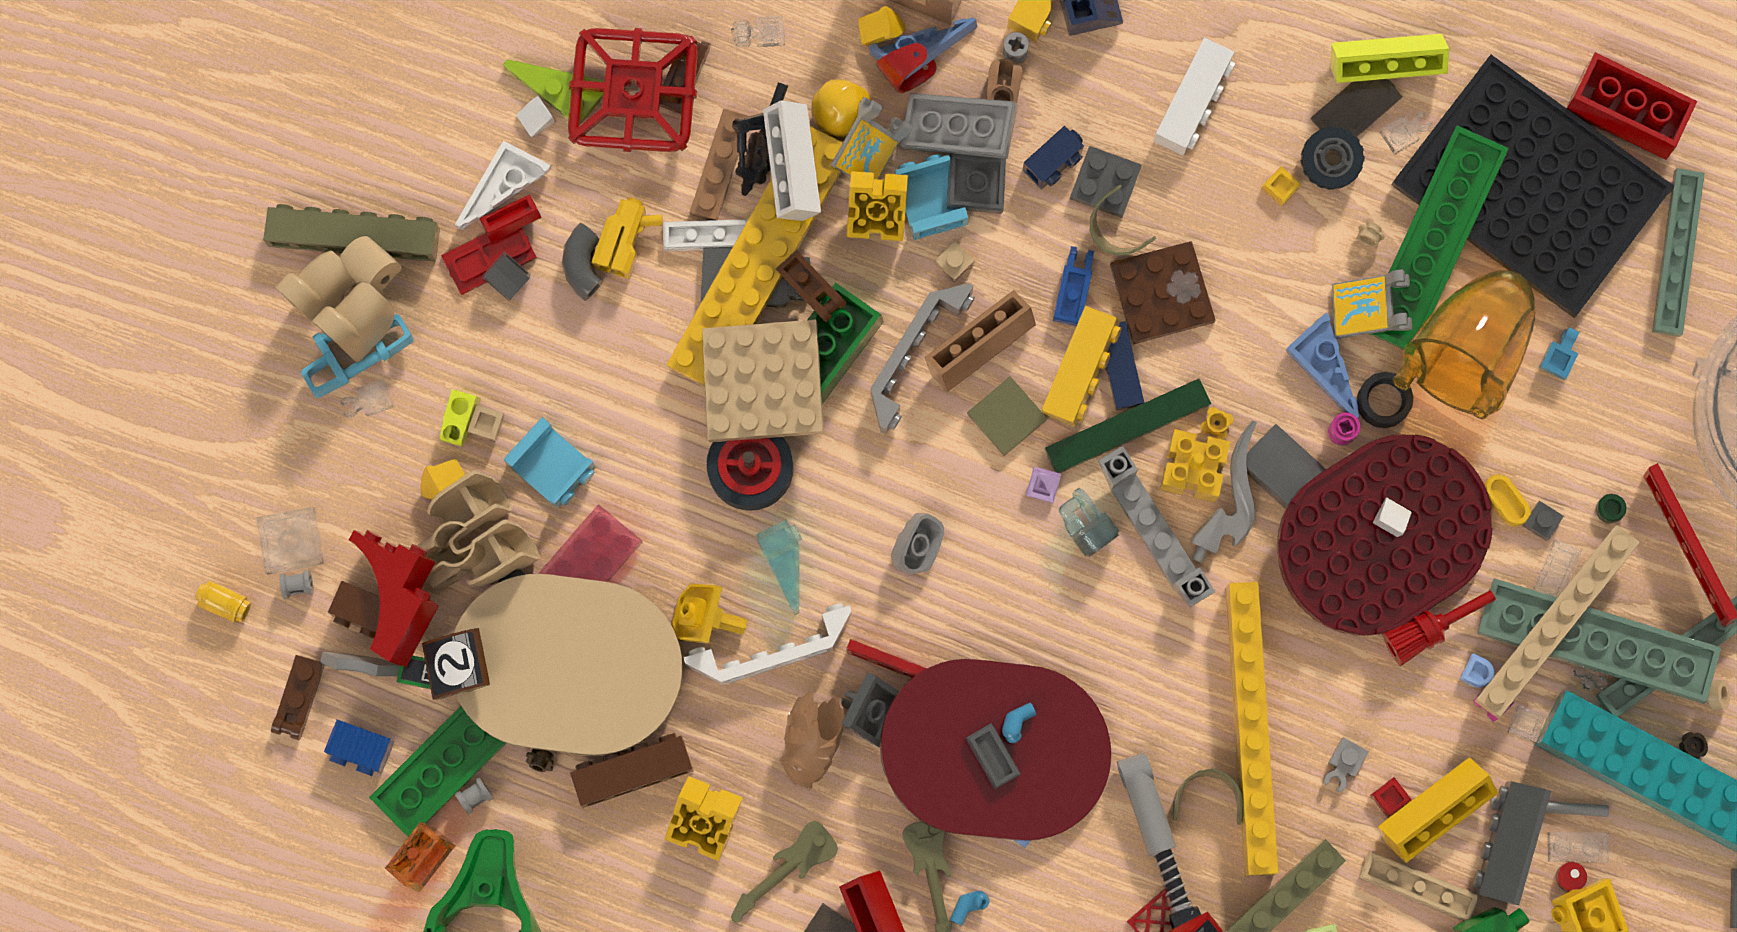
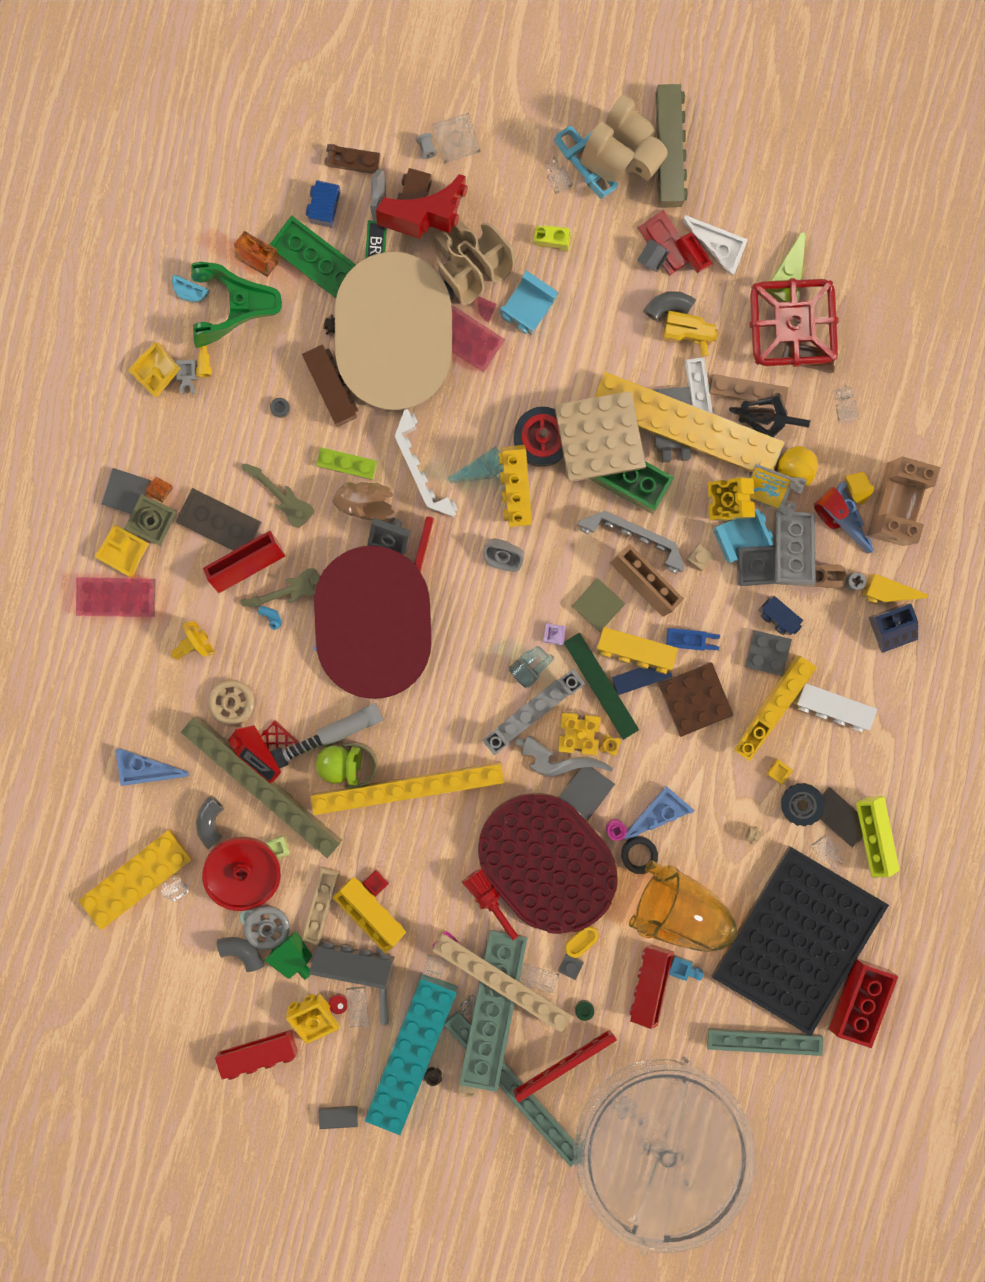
camera: 90 degrees right, 10 degrees up
(222, 602) = (408, 98): yellow head -> none
(440, 477) = (510, 231): yellow tile -> none
(455, 663) = (382, 256): slope -> none
(474, 796) = (301, 284): light grey bush -> none
(486, 423) = (550, 256): tan plate -> none
(535, 117) = (767, 259): white slope -> none
(548, 528) = (485, 308): none -> clear pink tile
(653, 853) = (280, 407): none -> dark grey tile
(699, 614) = (438, 415): yellow piece -> none
(703, 818) = (303, 435): yellow brick -> none
(752, 760) = (346, 463): none -> lime plate
(791, 160) = (755, 436): white brick -> none
(810, 285) = (669, 460): reddish brown plate -> none
(818, 511) = (516, 485): none -> yellow brick
(992, 756) = (367, 620): dark grey tile -> none
(1014, 720) = (391, 632): dark azure arm -> none
(1101, 241) = (724, 655): olive piece -> none
(1184, 180) = (775, 706): none -> yellow slope
(1184, 286) = (700, 713): clear plant -> none
(1205, 829) = (337, 764): none -> lime tile
(1346, 760) = (396, 852): light grey plate -> none
(1367, 305) = (702, 837): flag -> none
(1392, 517) = (558, 868): white slope -> none
(1442, 227) = (754, 879): green plate -> none
(1477, 672) = (464, 932): light blue tile -> none
(1581, 404) = (651, 986): none -> red brick

